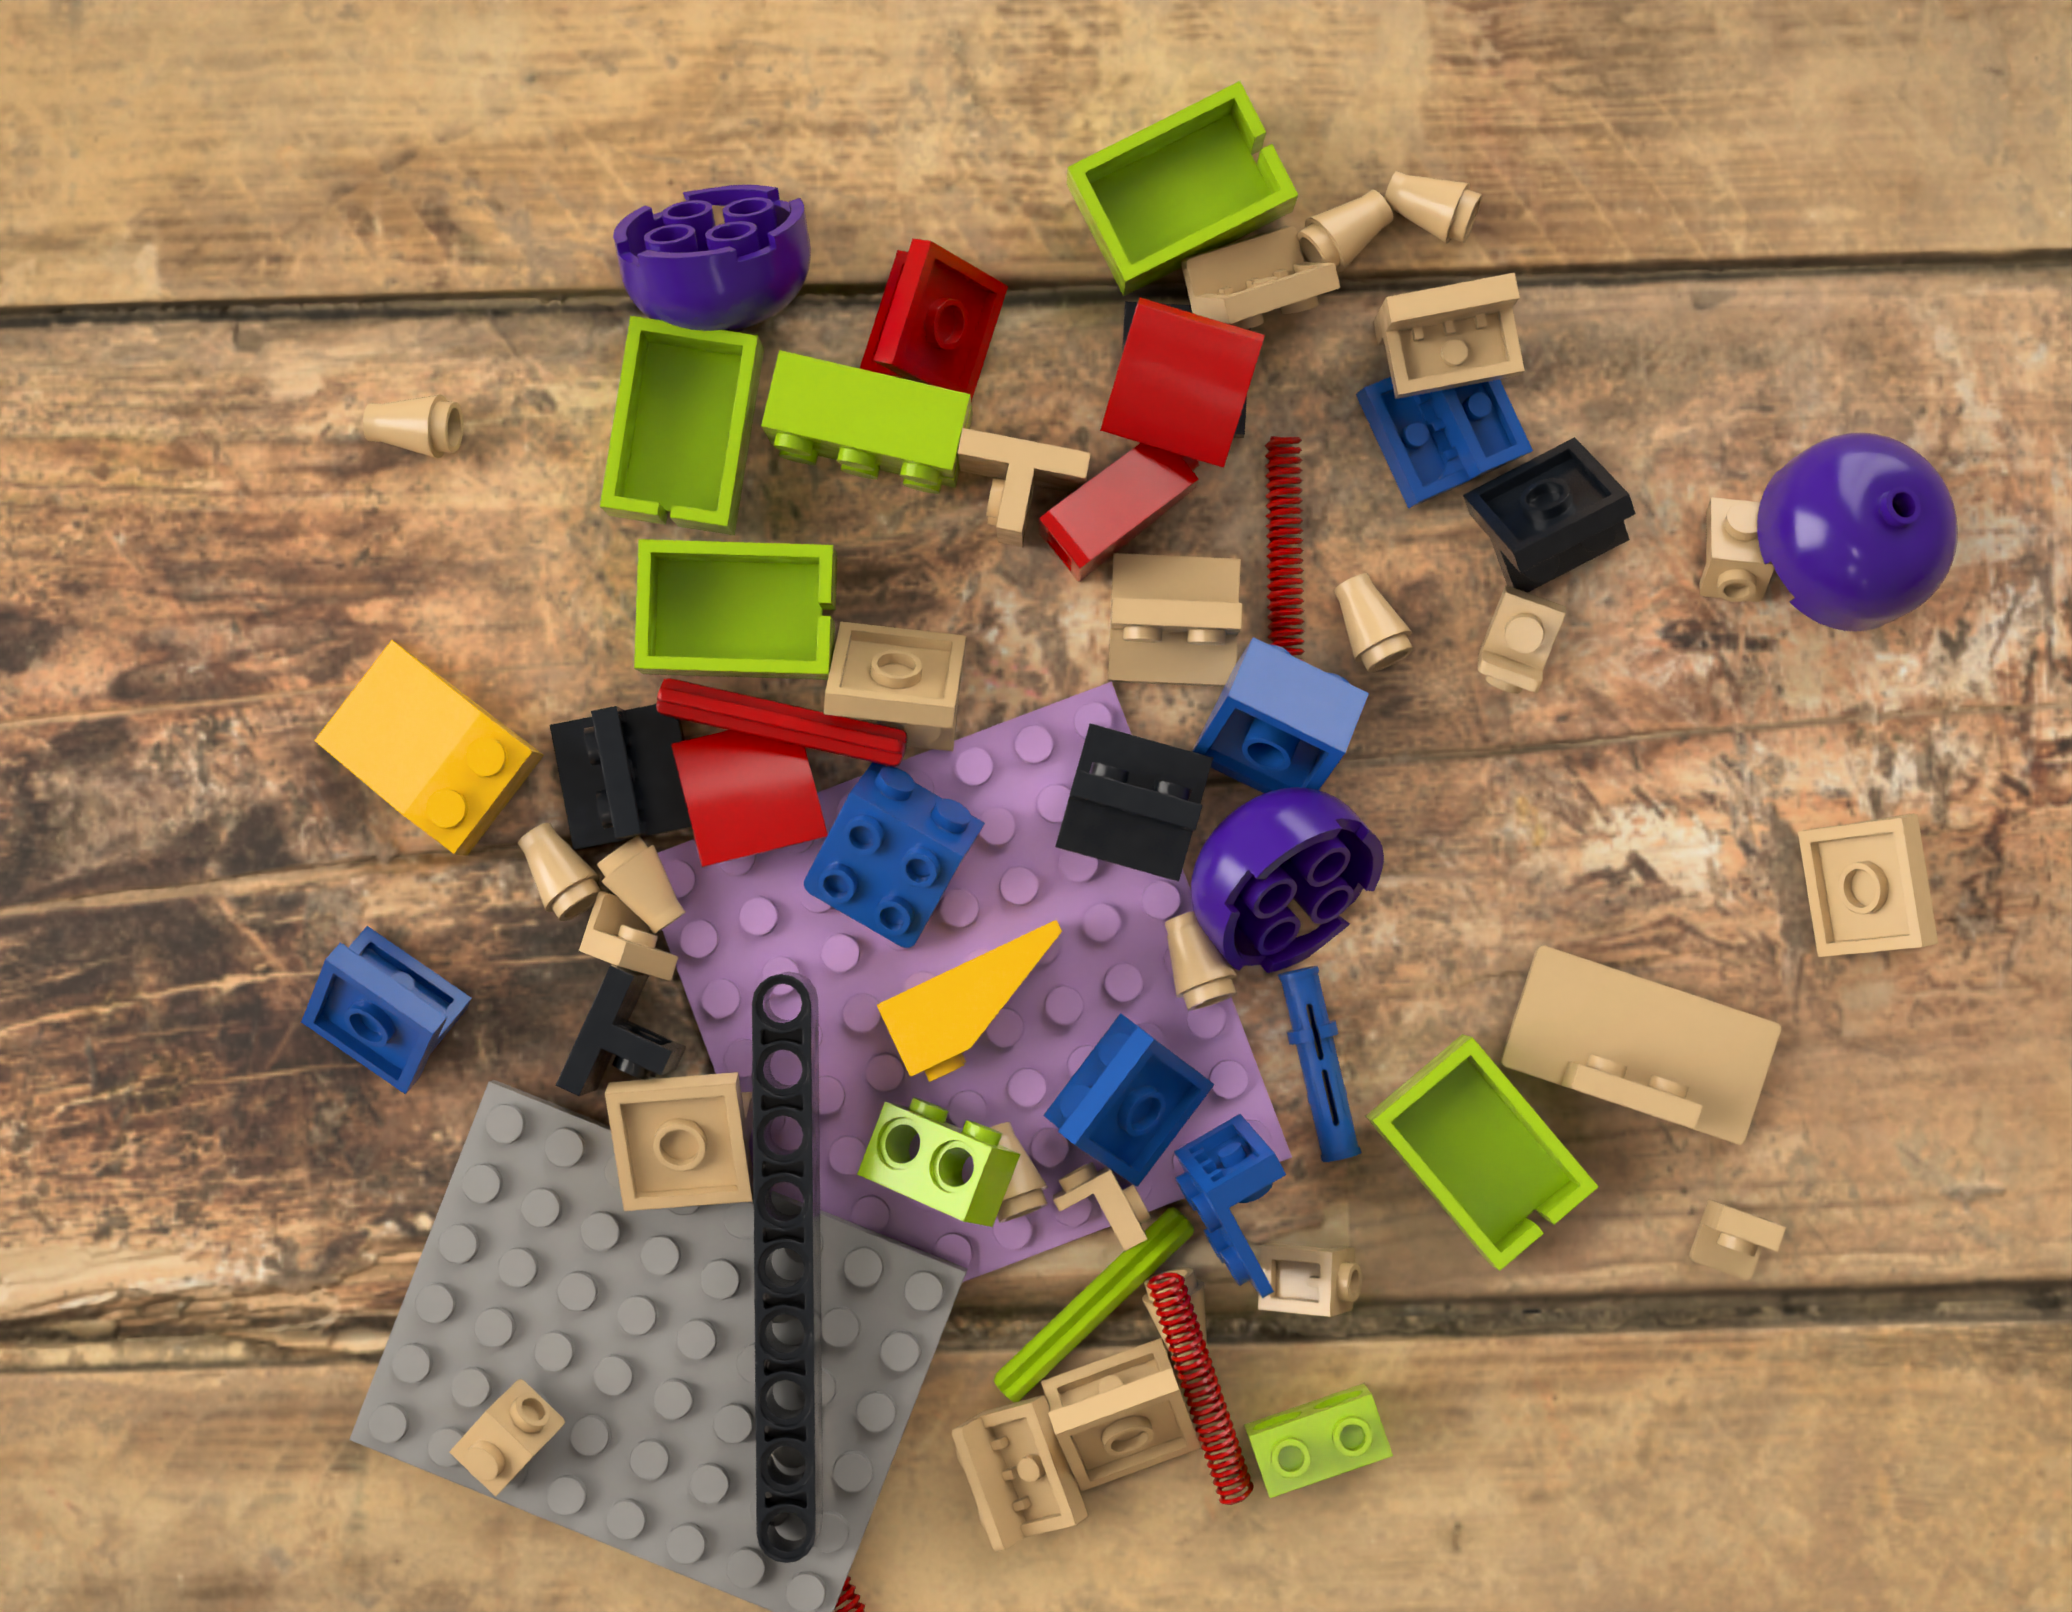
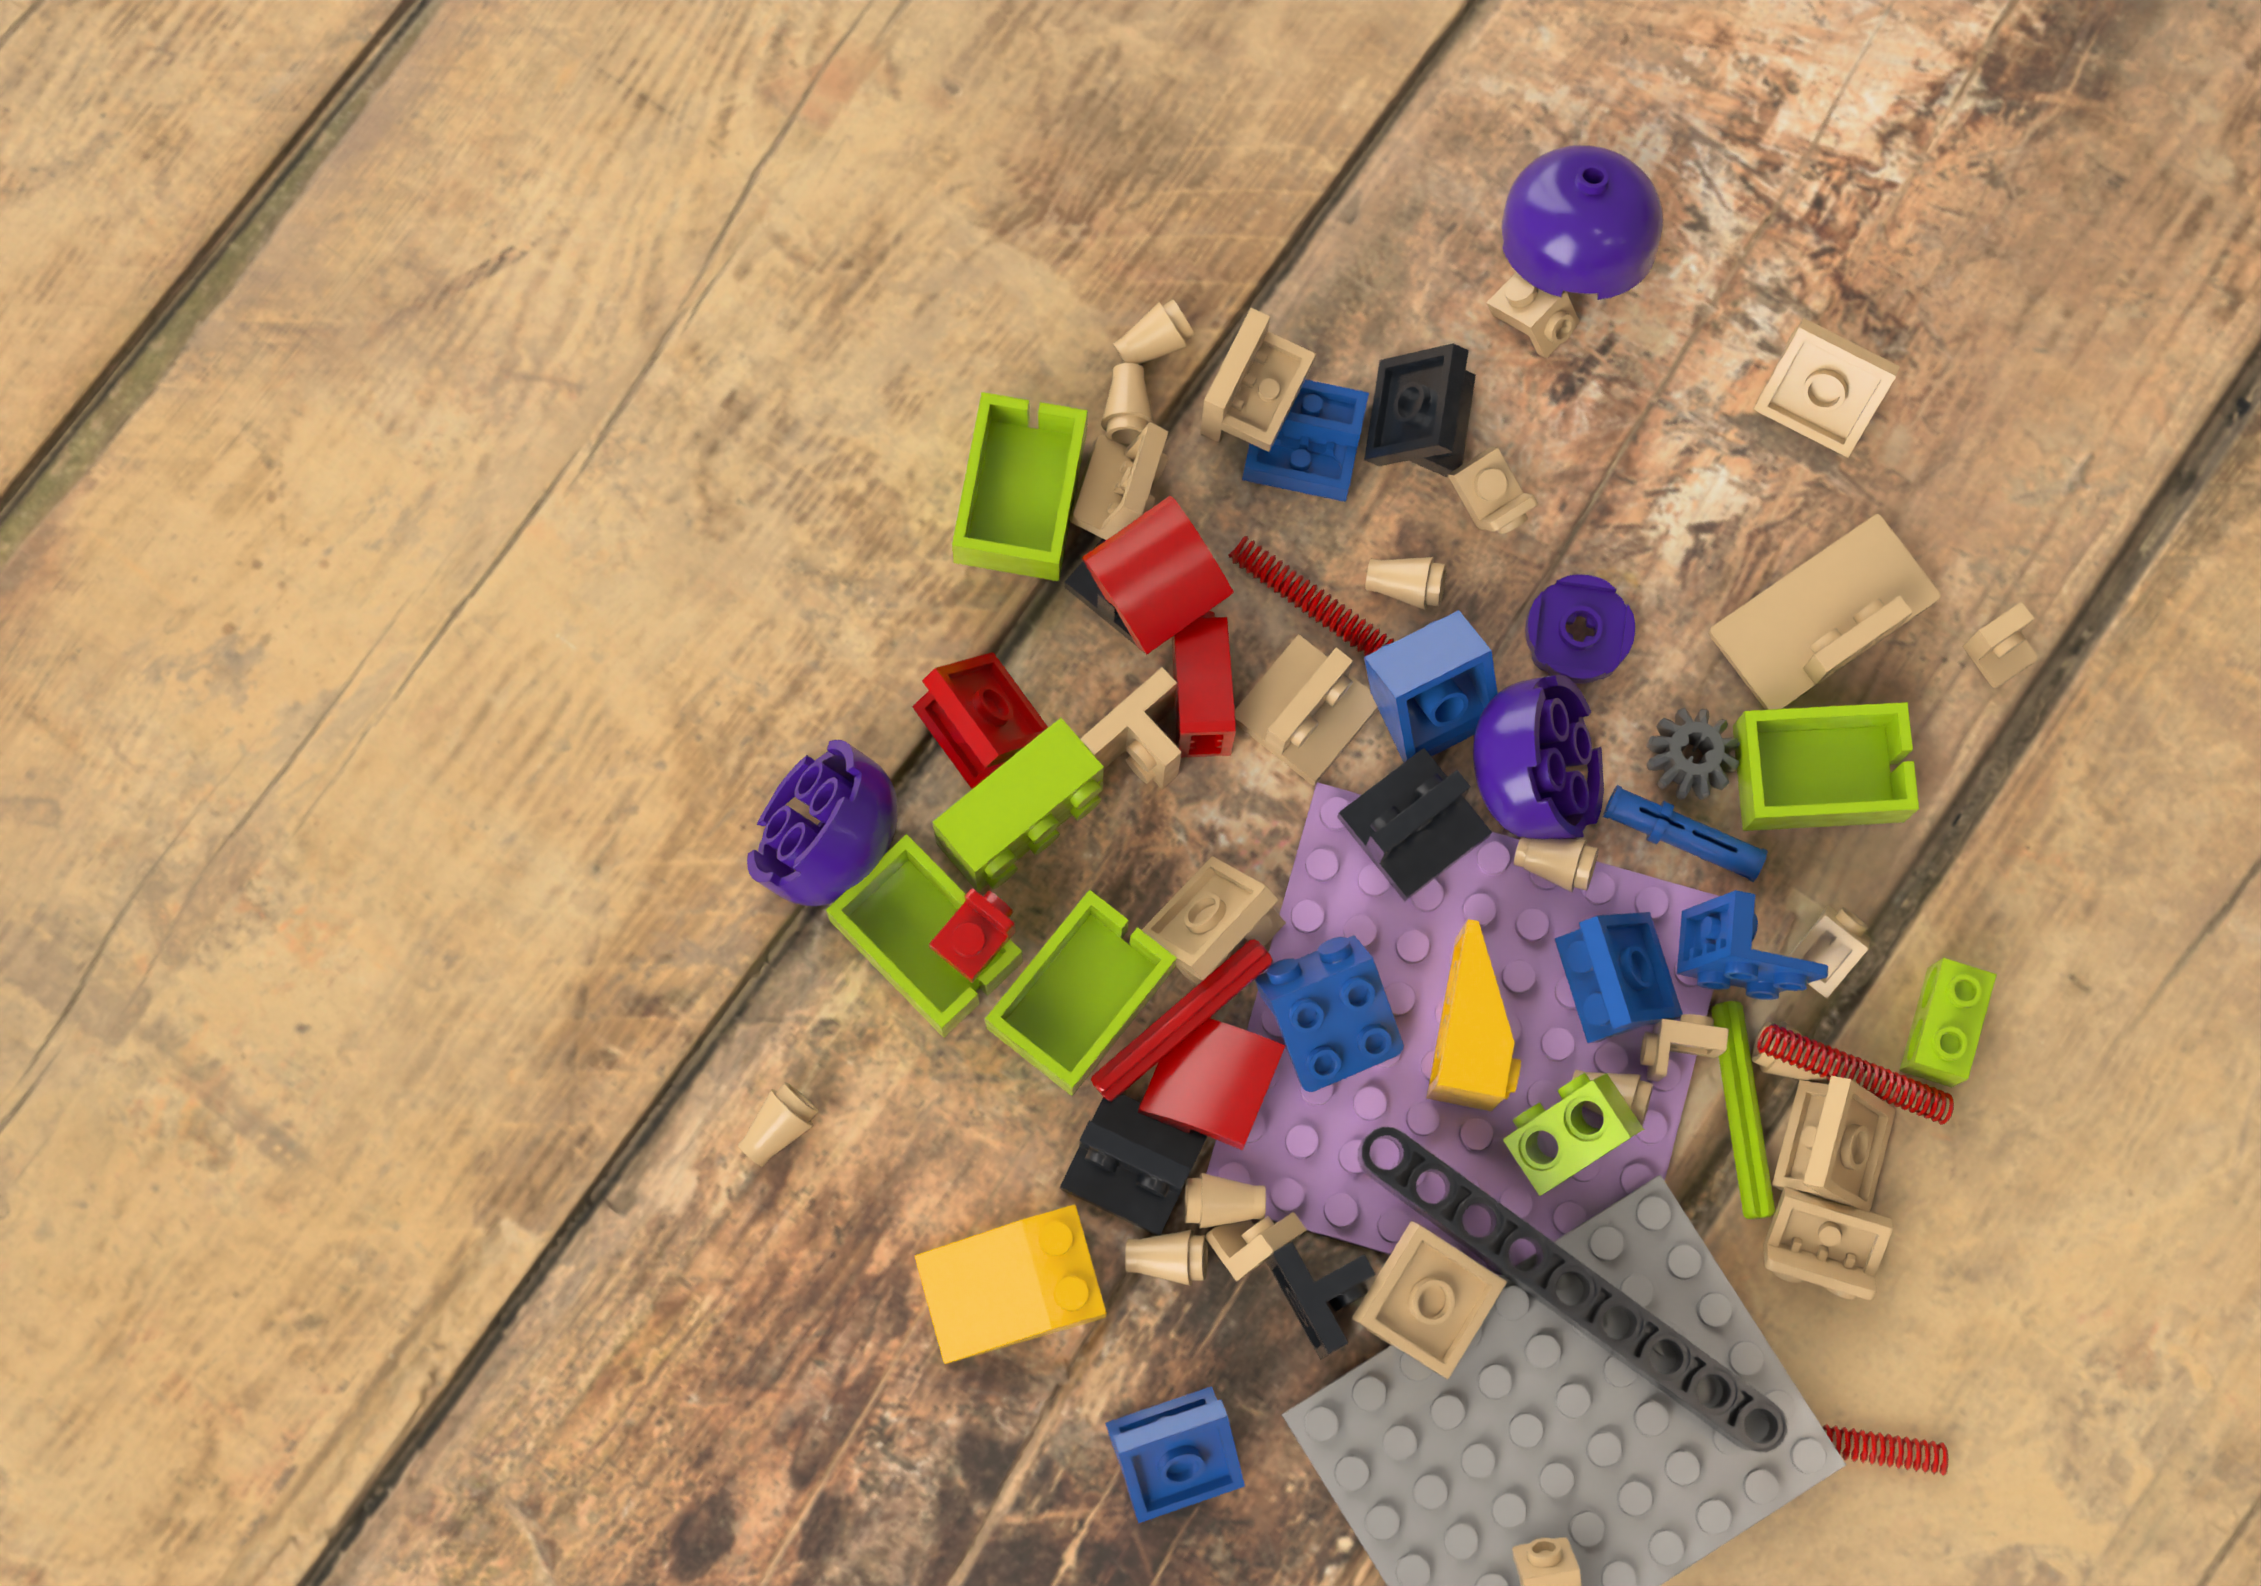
camera: 60 degrees left, 10 degrees down
(705, 470) = (975, 933): none -> red bracket
(1402, 1037) = (1674, 739): none -> dark grey gear
(1457, 786) = (1604, 611): none -> dark purple plate

